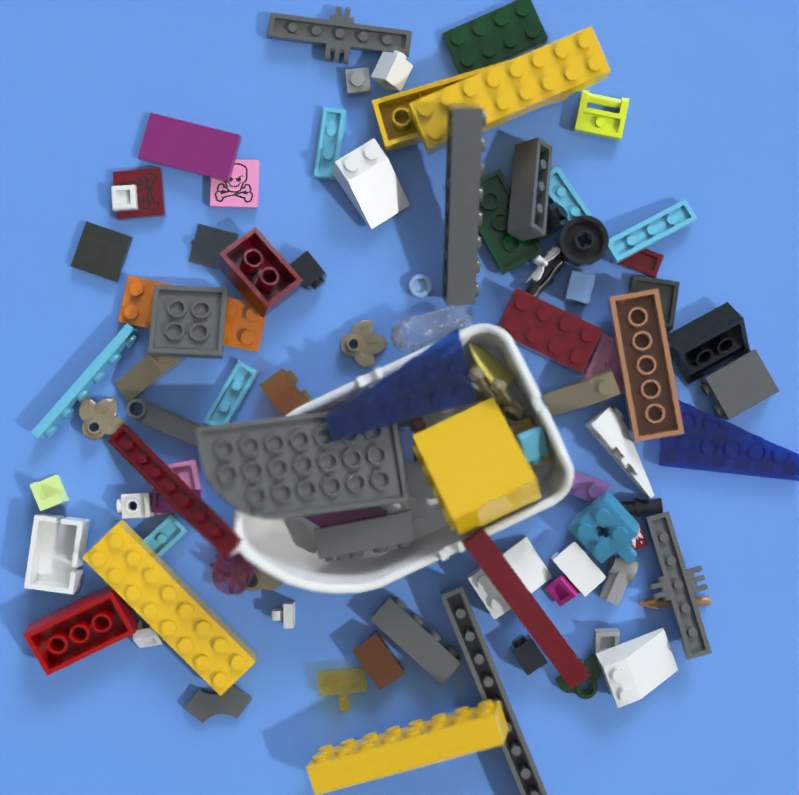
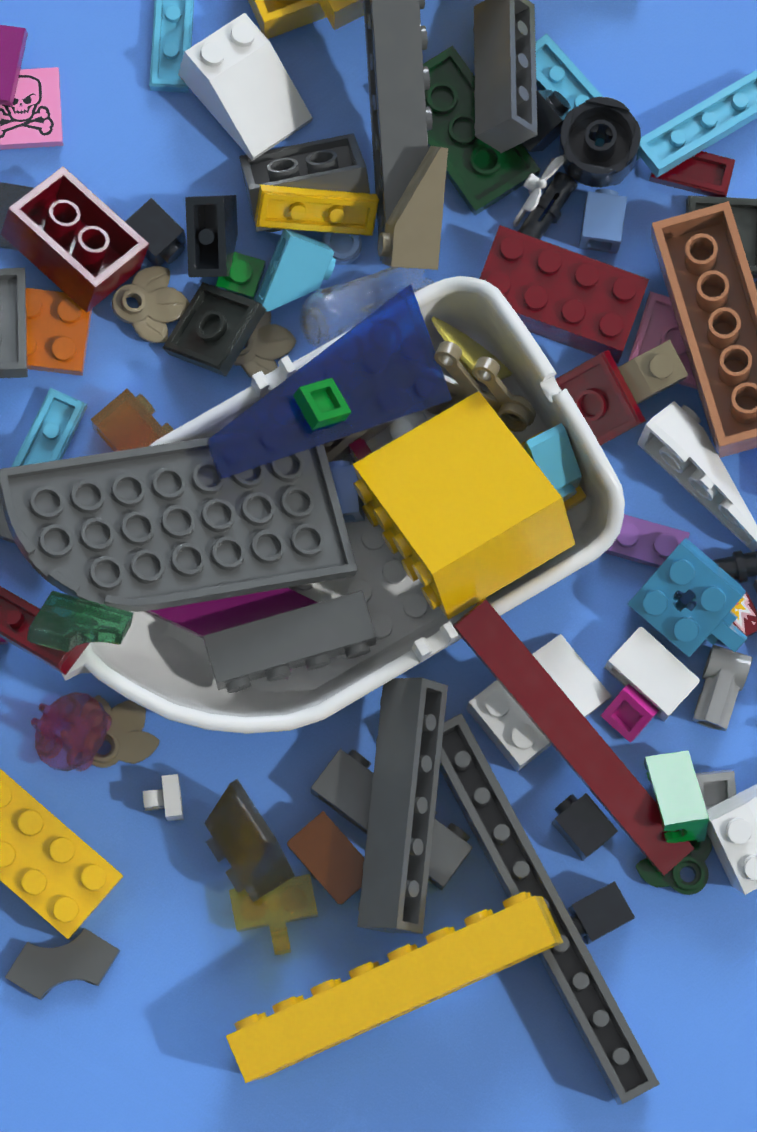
camera: 15 degrees left, 10 degrees down
(235, 528) = (73, 621): none -> clear green tile
(306, 313) = (156, 304): none -> dark tan plate
(329, 650) = (246, 844): none -> clear smoke slope
(338, 334) = (214, 329): none -> pearl dark grey tile
(341, 275) = (211, 234): none -> black slope
(357, 300) = (243, 276): none -> green plate
(390, 302) = (295, 269): none -> medium azure slope
(396, 402) = (322, 403): none -> green plate
(402, 246) = (318, 164): none -> dark grey slope
(406, 267) = (316, 210): none -> yellow tile
(422, 641) = (402, 806): none -> dark grey brick
(465, 284) = (416, 222): none -> dark tan slope
(531, 706) = (600, 913): none -> black brick
(564, 401) = (602, 397): none -> dark red tile
(585, 645) = (678, 796): none -> hinge

